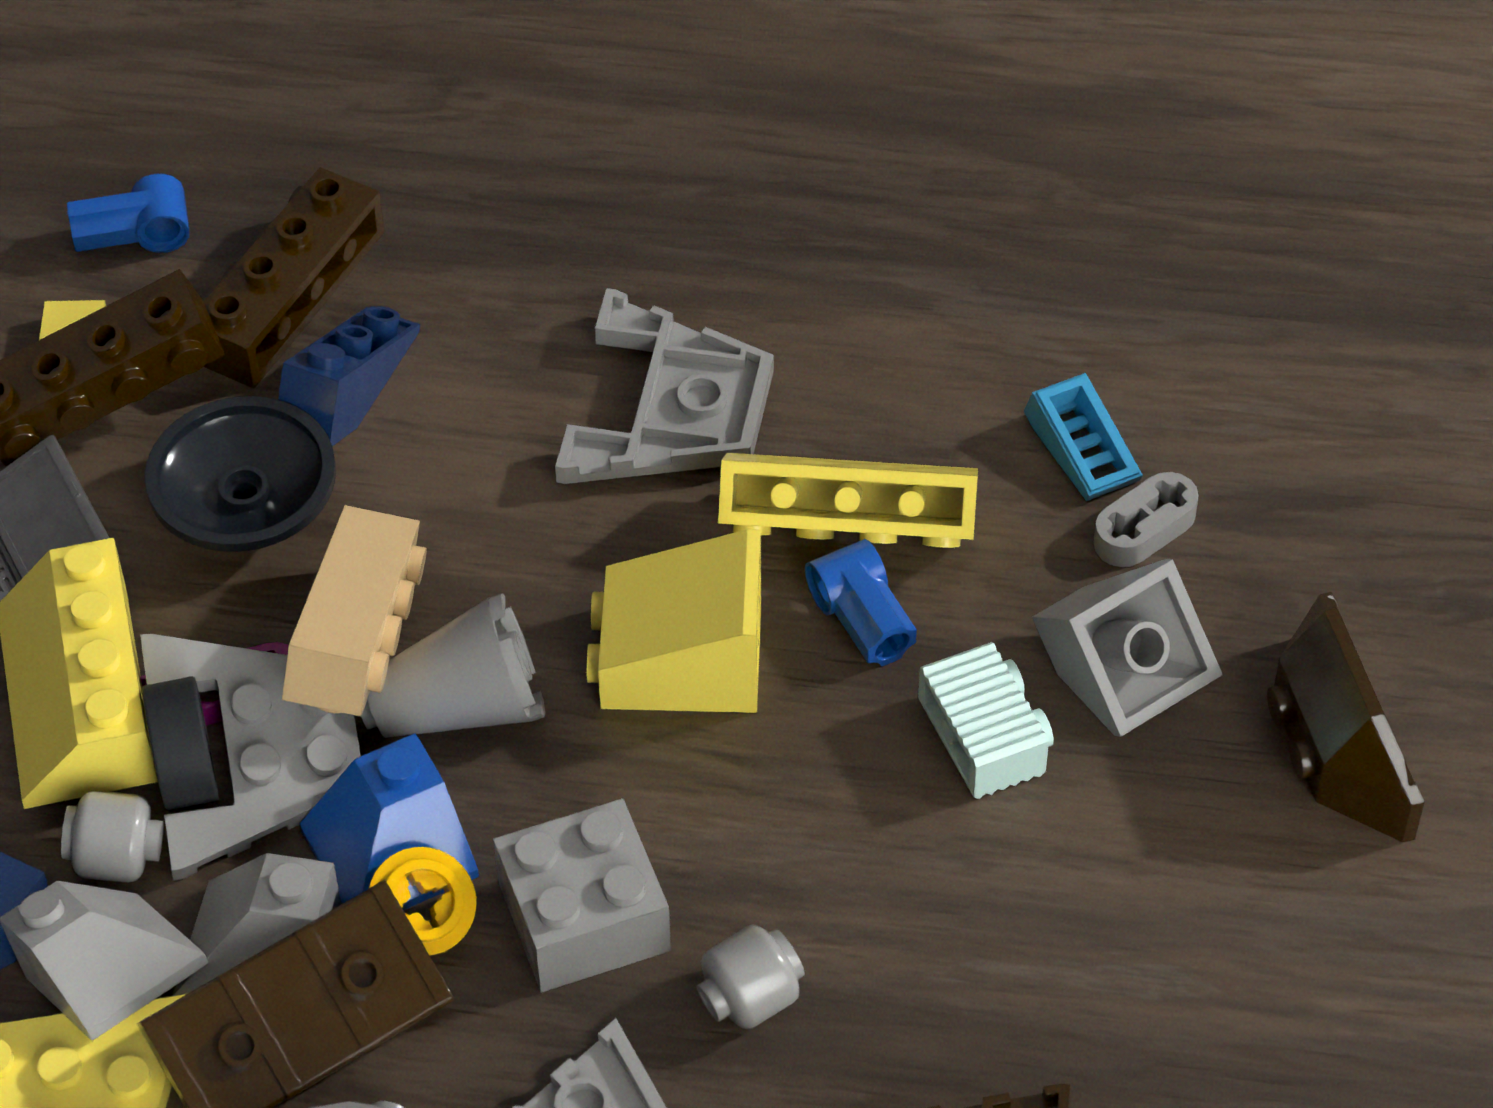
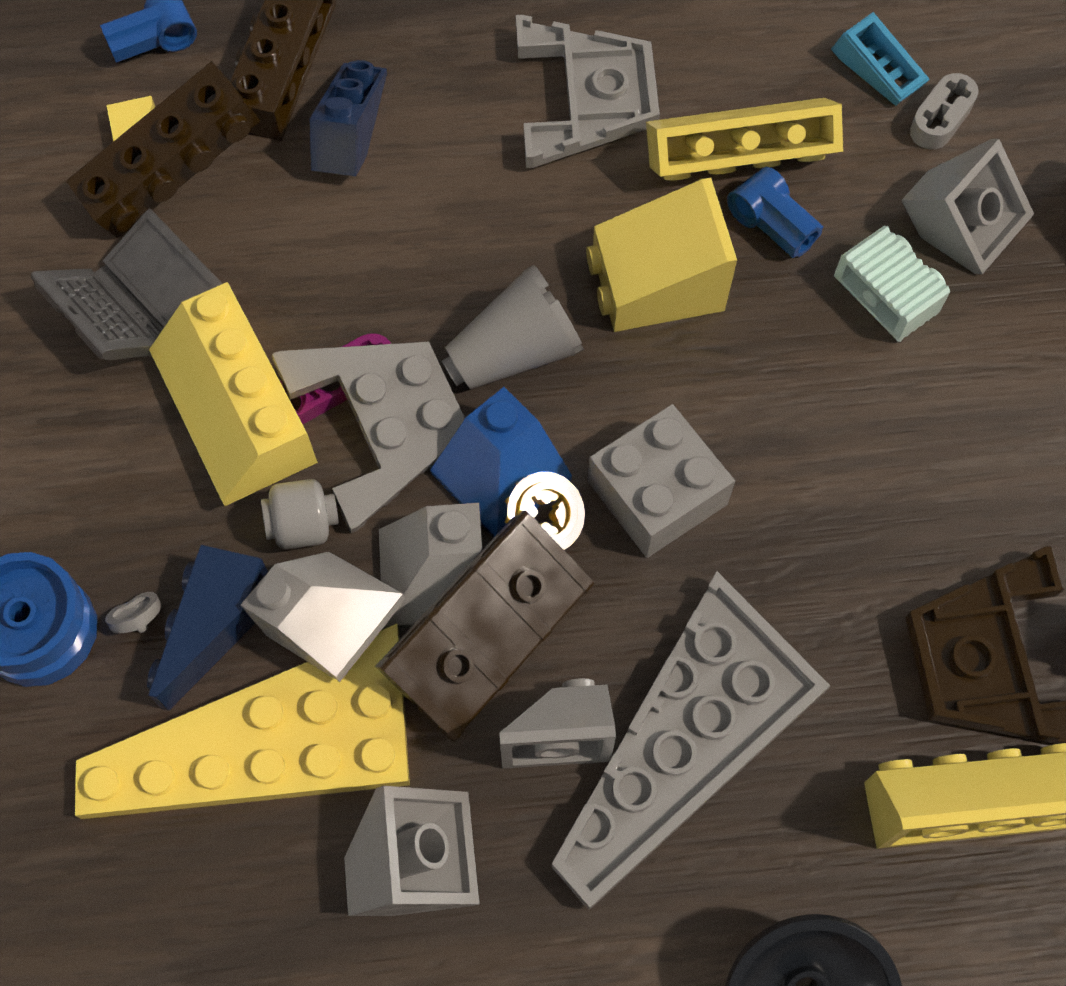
camera: 15 degrees left, 15 degrees up
(180, 743) = (329, 431): black tyre -> none
(236, 452) = (296, 191): black dish -> none
(354, 612) = (427, 303): tan brick -> none
(750, 976) = (801, 516): light grey head -> none

